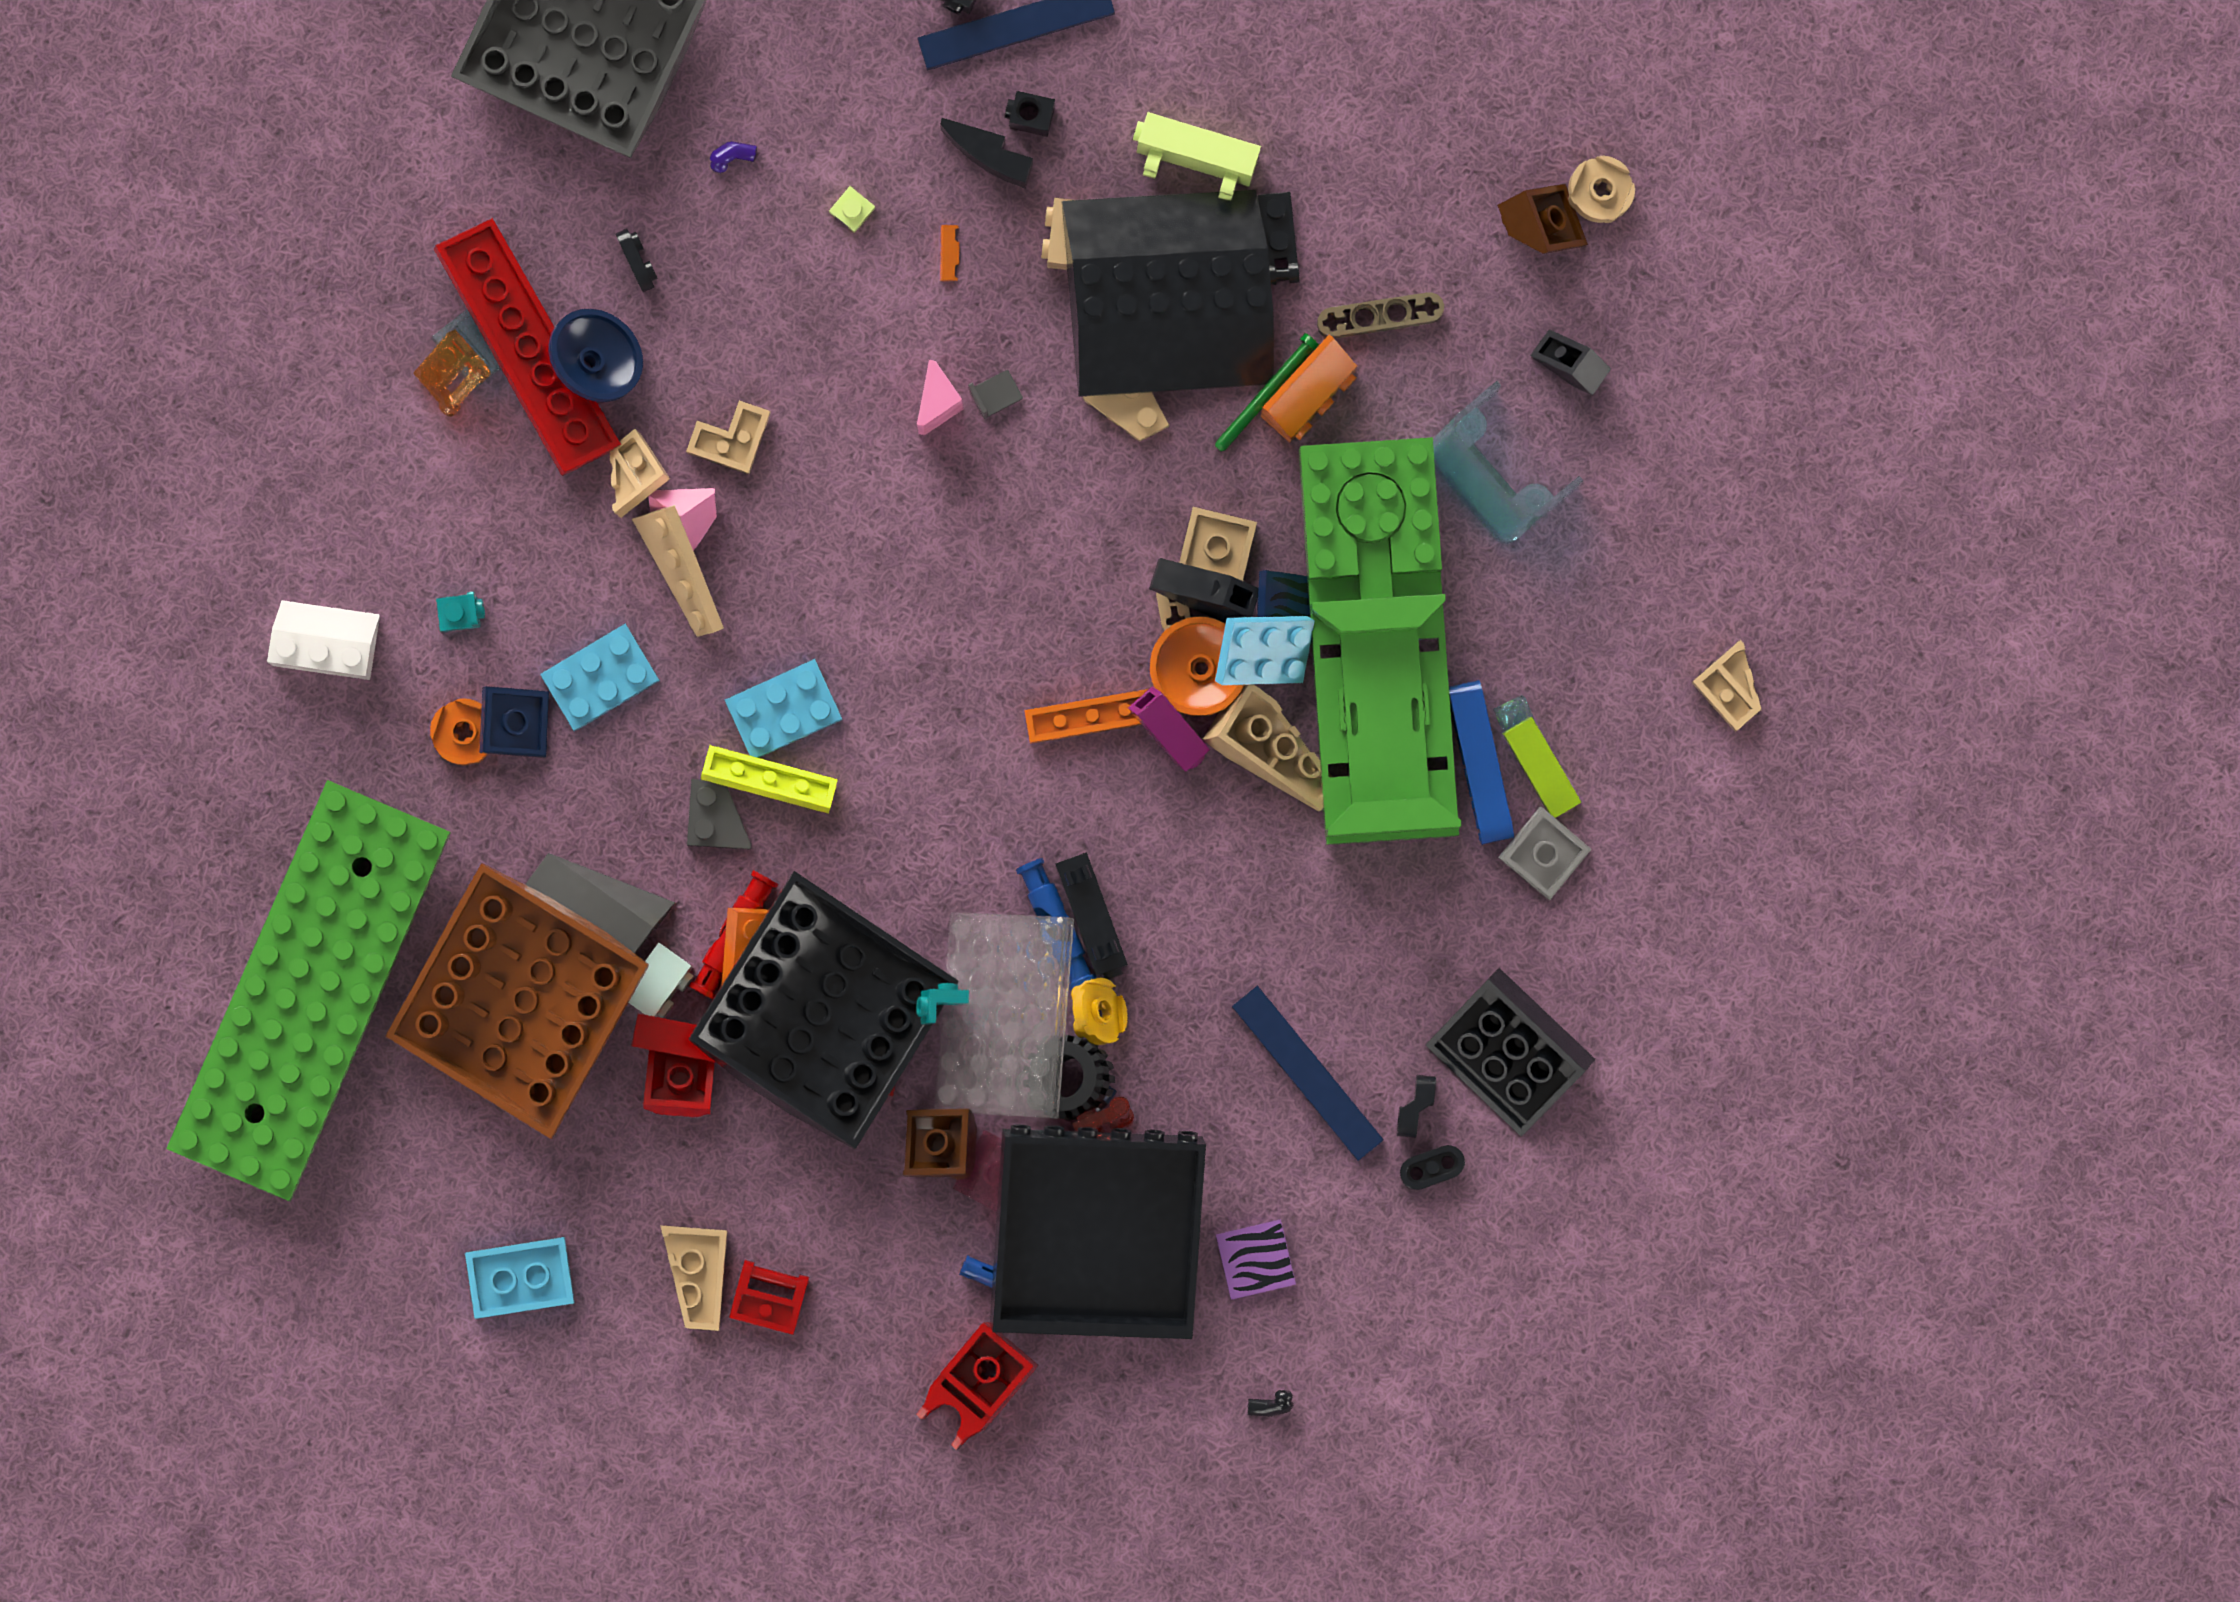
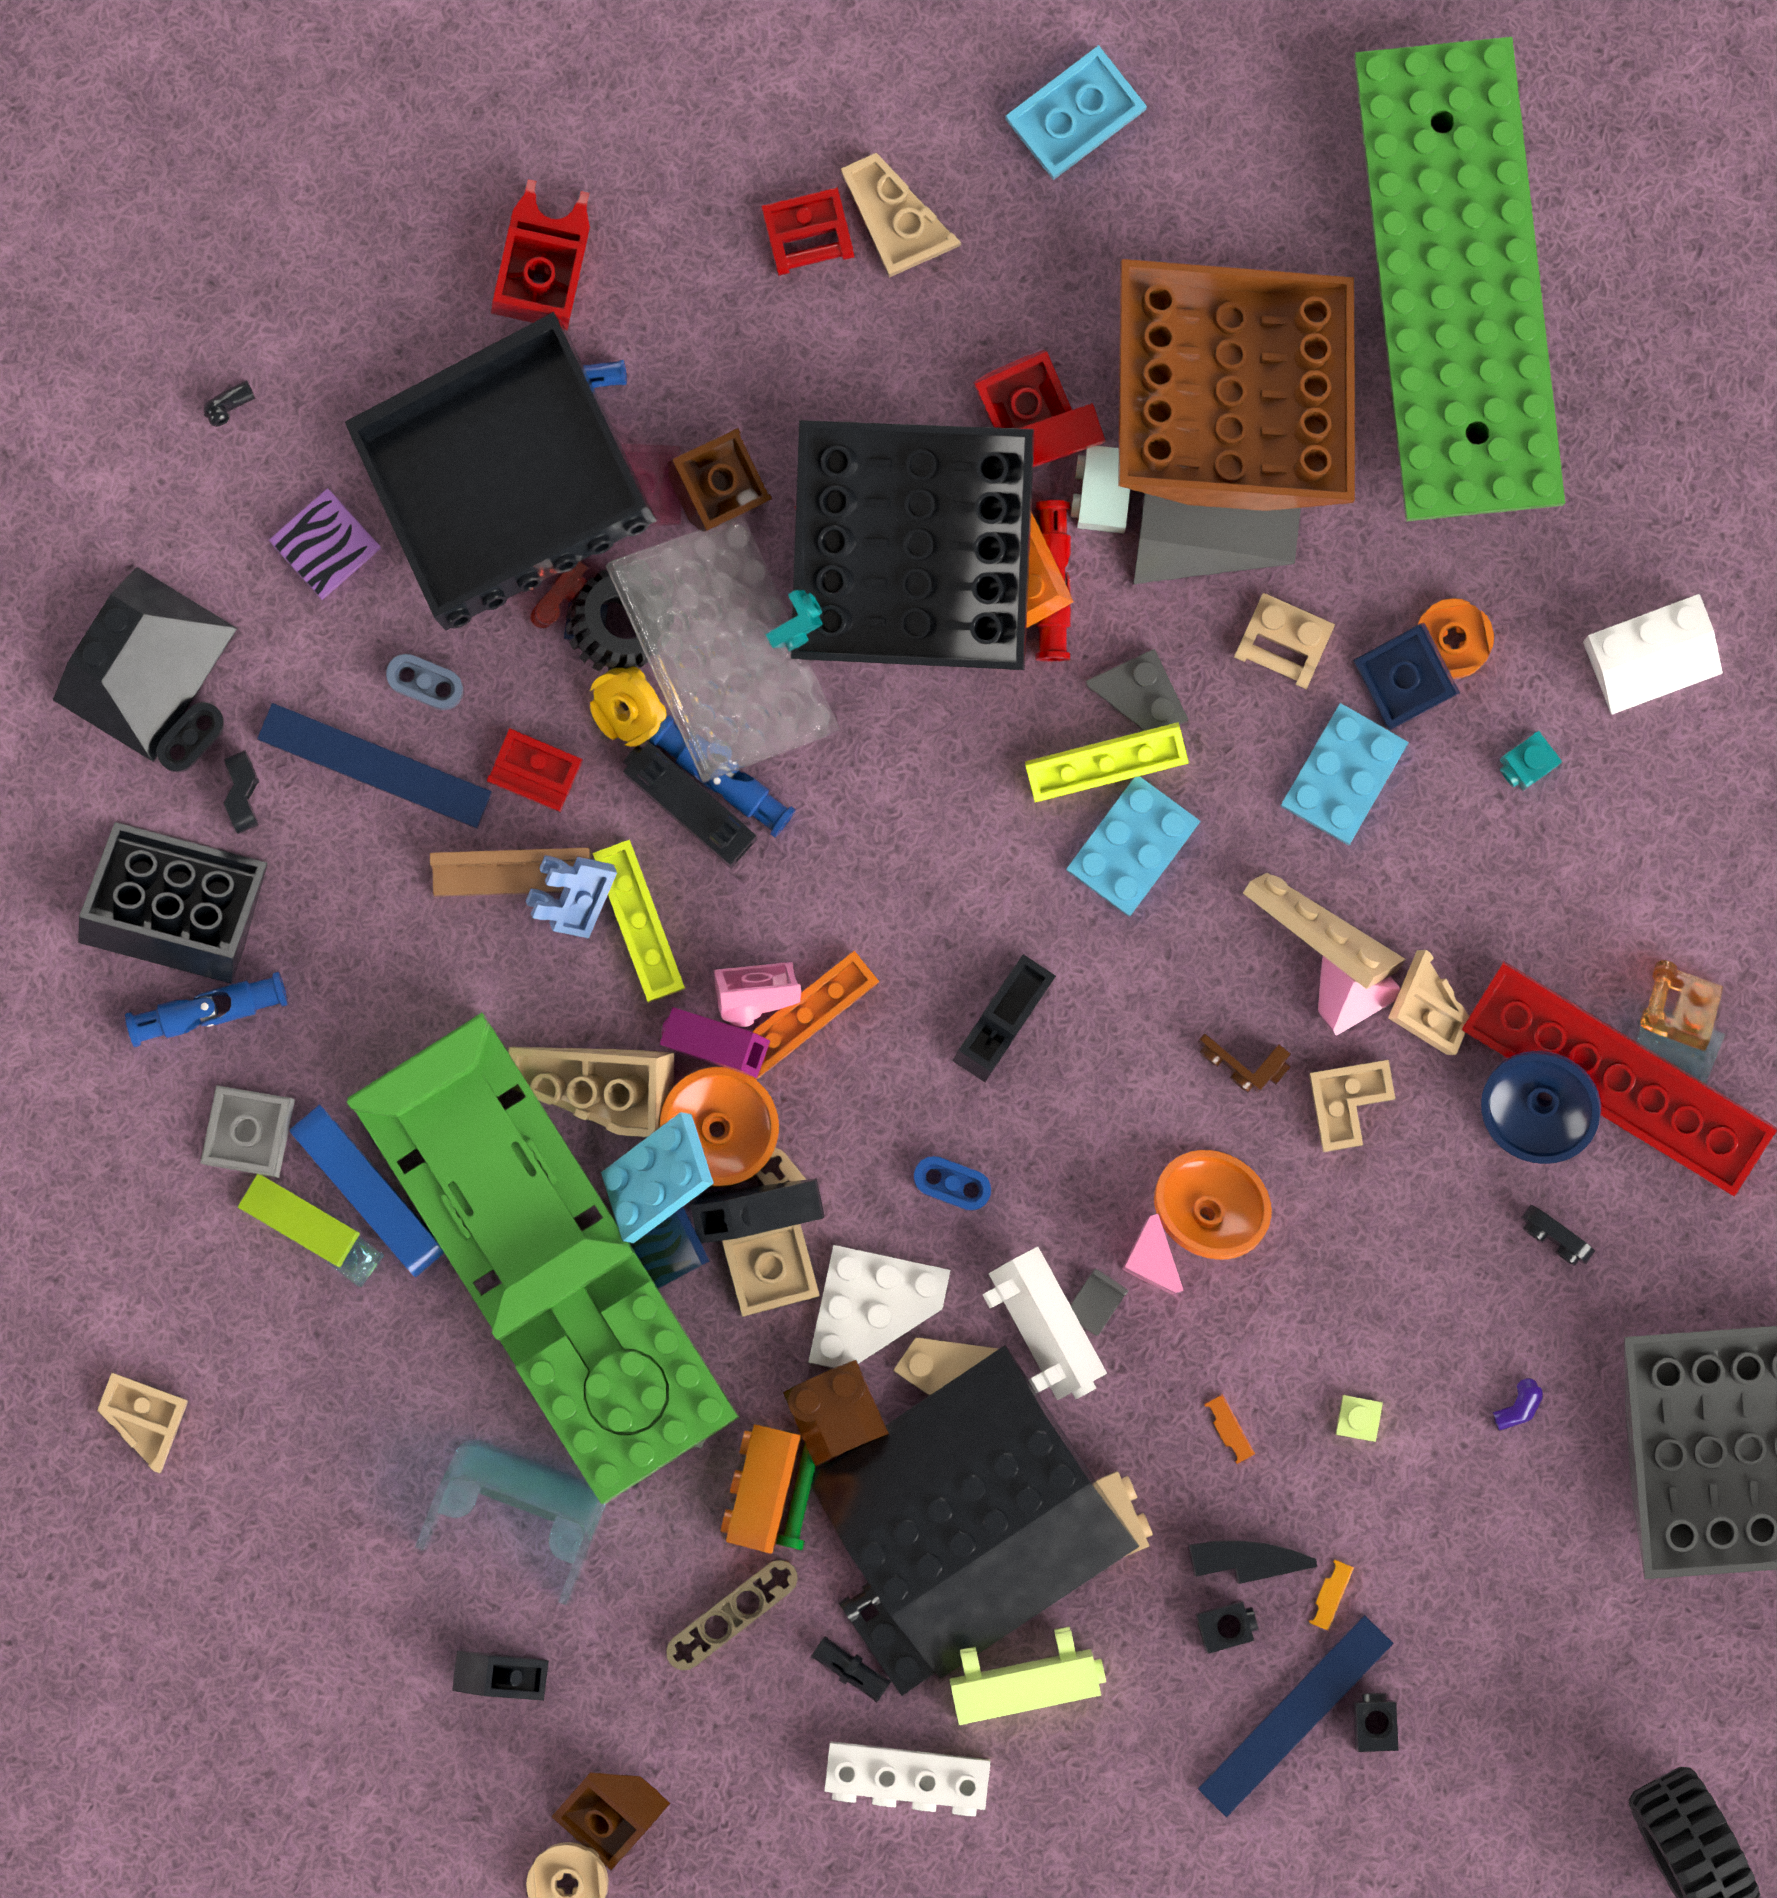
camera: 155 degrees right, 0 degrees up
(579, 806) = (1290, 629): none -> tan plate
(775, 491) = (1271, 1069): none -> reddish brown bracket
(856, 416) = (1222, 1190): none -> orange dish
(942, 96) = (1331, 1595): none -> light orange piece
(947, 634) = (1004, 1018): none -> black slope
(1039, 395) = (1046, 1325): none -> white brick
(1052, 535) = (952, 1183): none -> blue plate
(1118, 751) = (754, 990): none -> bright pink slope
(1158, 481) = (872, 1303): none -> white plate
(1175, 851) = (640, 924): none -> neon yellow plate
(1191, 1004) = (534, 770): none -> red plate
(1207, 888) = (581, 899): none -> medium blue plate
(1227, 415) = (835, 1412): none -> reddish brown slope
(1237, 1114) = (425, 682): none -> sand blue plate
(1249, 937) = (496, 871): none -> medium nougat fence
(1316, 230) = (850, 1669): none -> black pin
(1317, 132) = (907, 1776): none -> white brick
(1436, 1243) = (142, 662): none -> black slope
(1550, 964) = (182, 1016): none -> blue piece

